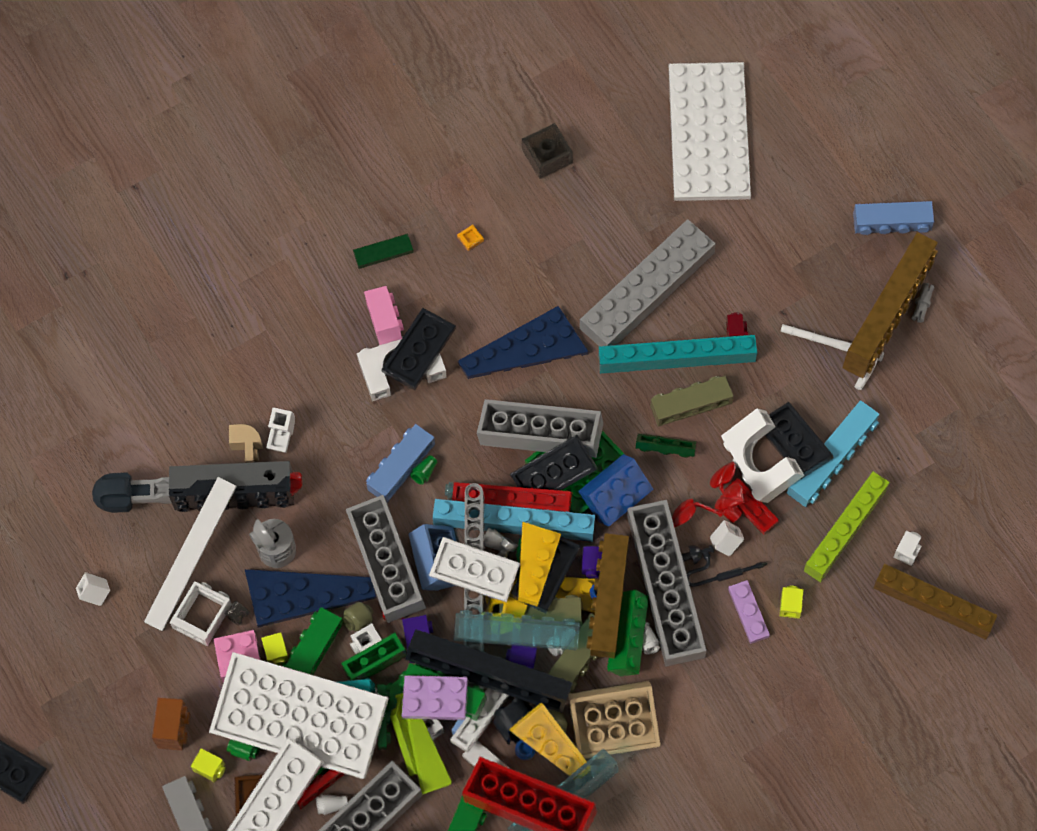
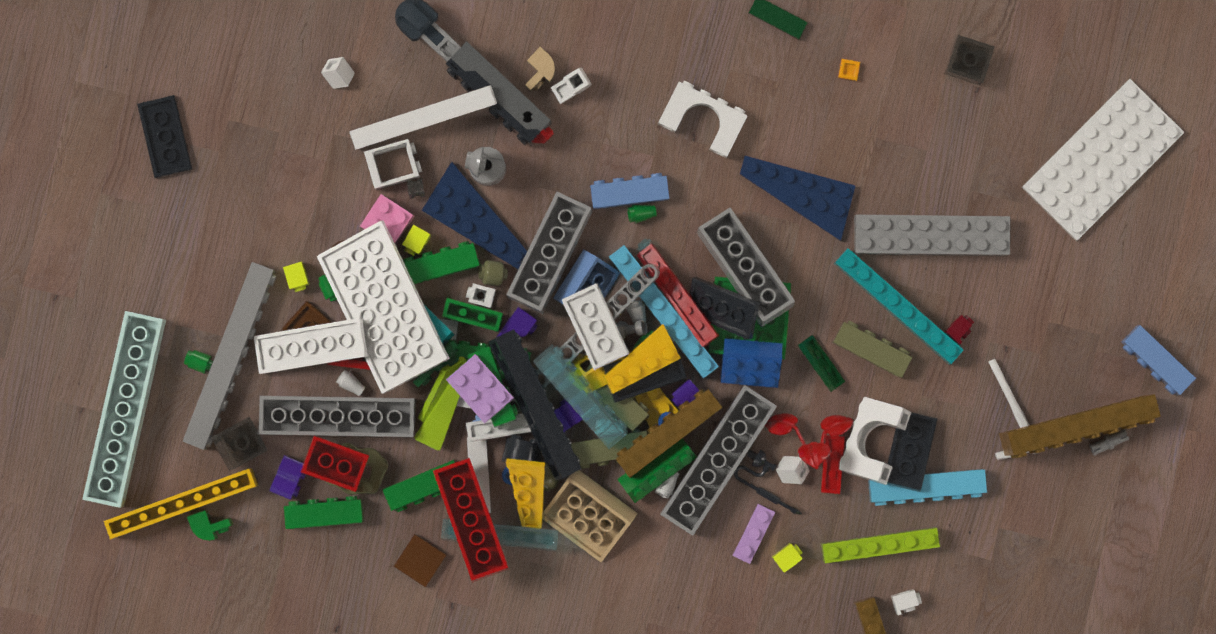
camera: 45 degrees right, 20 degrees up
(170, 724) = (297, 225): dark orange brick -> none
(384, 315) = (726, 71): bright pink brick -> none
(418, 348) = (723, 122): black tile -> none

